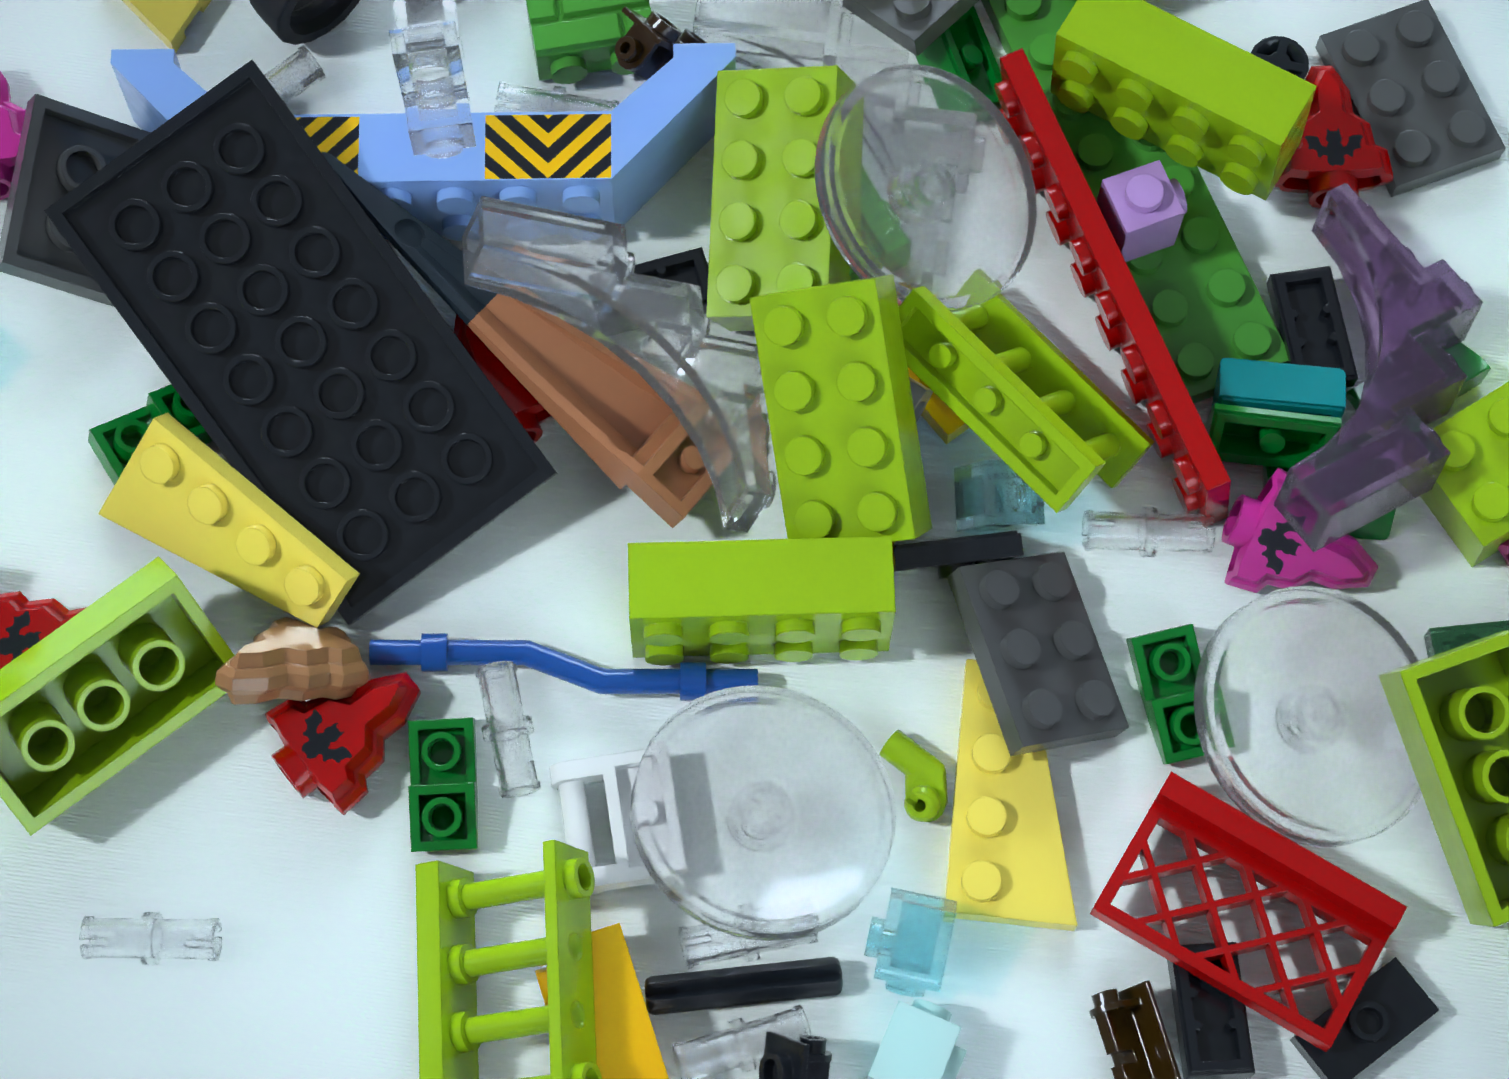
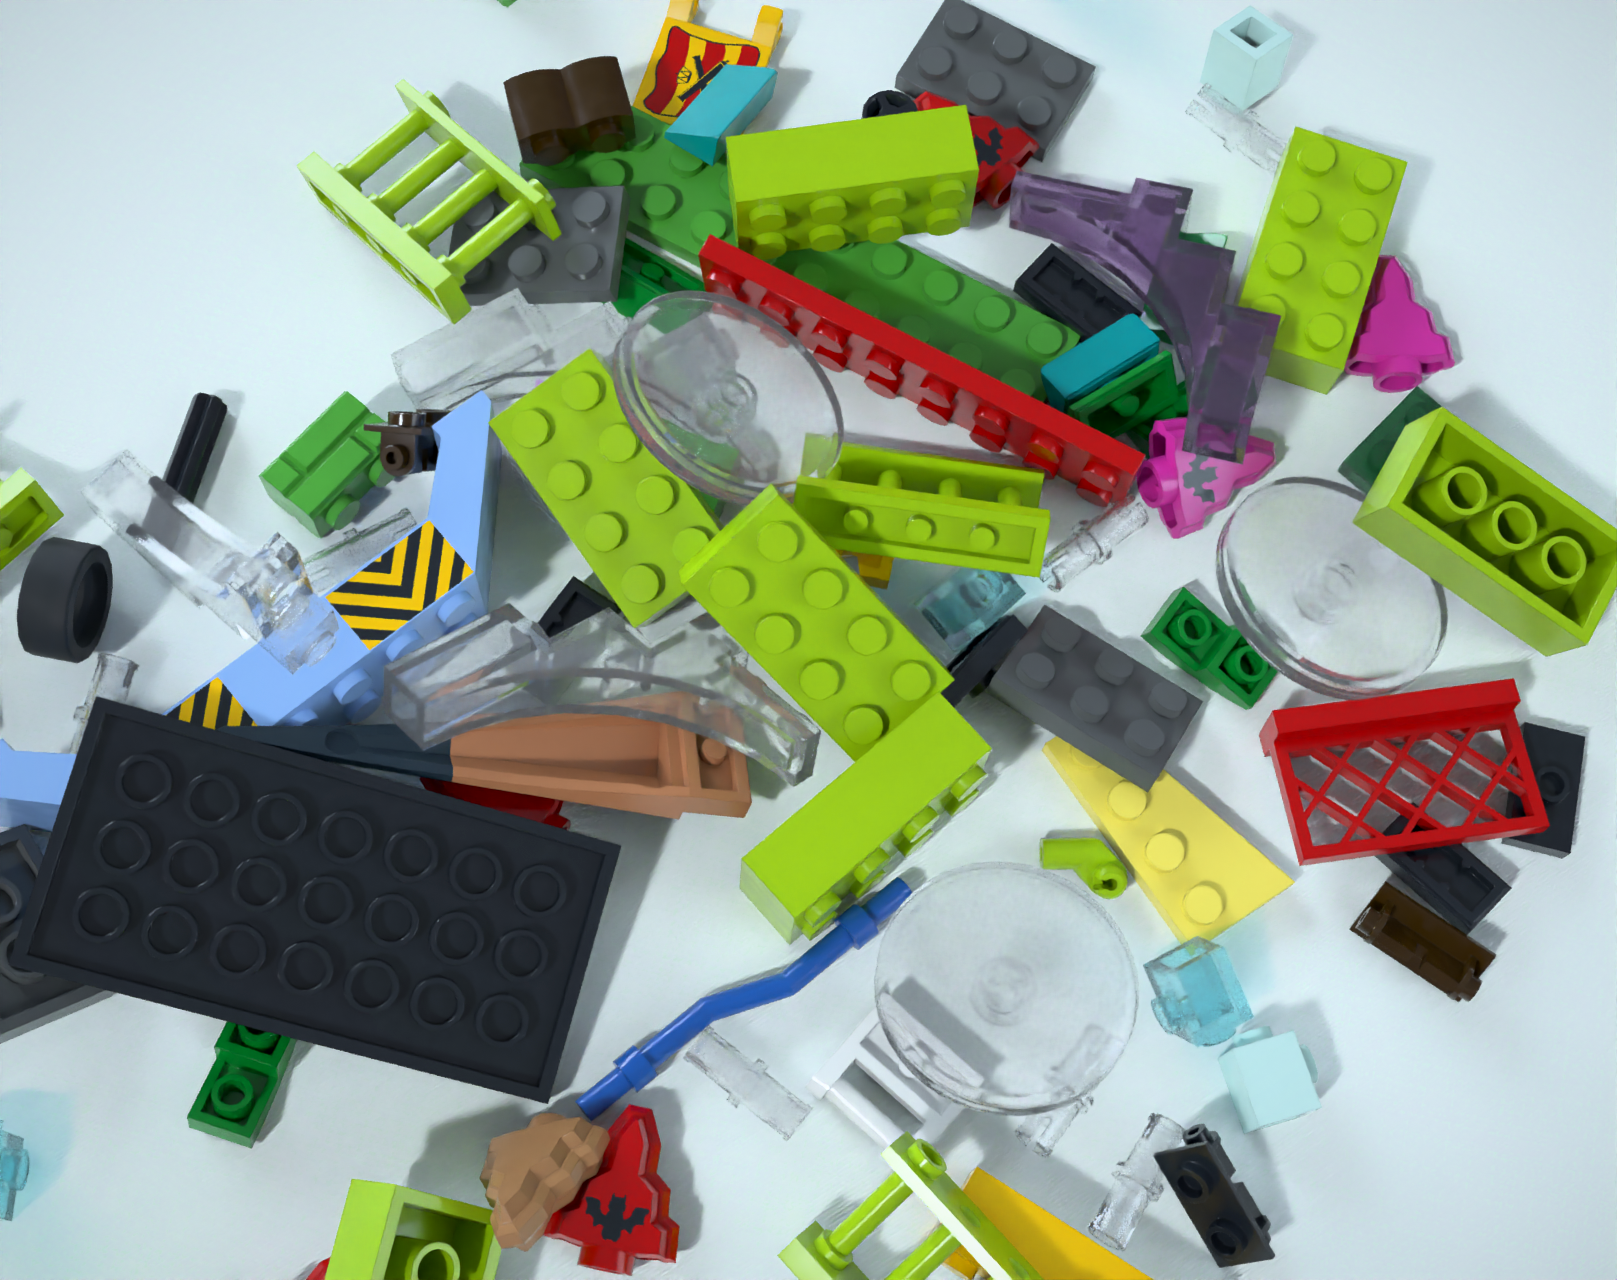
camera: 45 degrees left, 0 degrees up
(217, 519) = (365, 1106): light yellow wing -> none
(443, 784) = (733, 1170): green slope -> none
(743, 985) = (1097, 1133): black axle -> none
(1142, 209) = (896, 291): lavender brick -> none

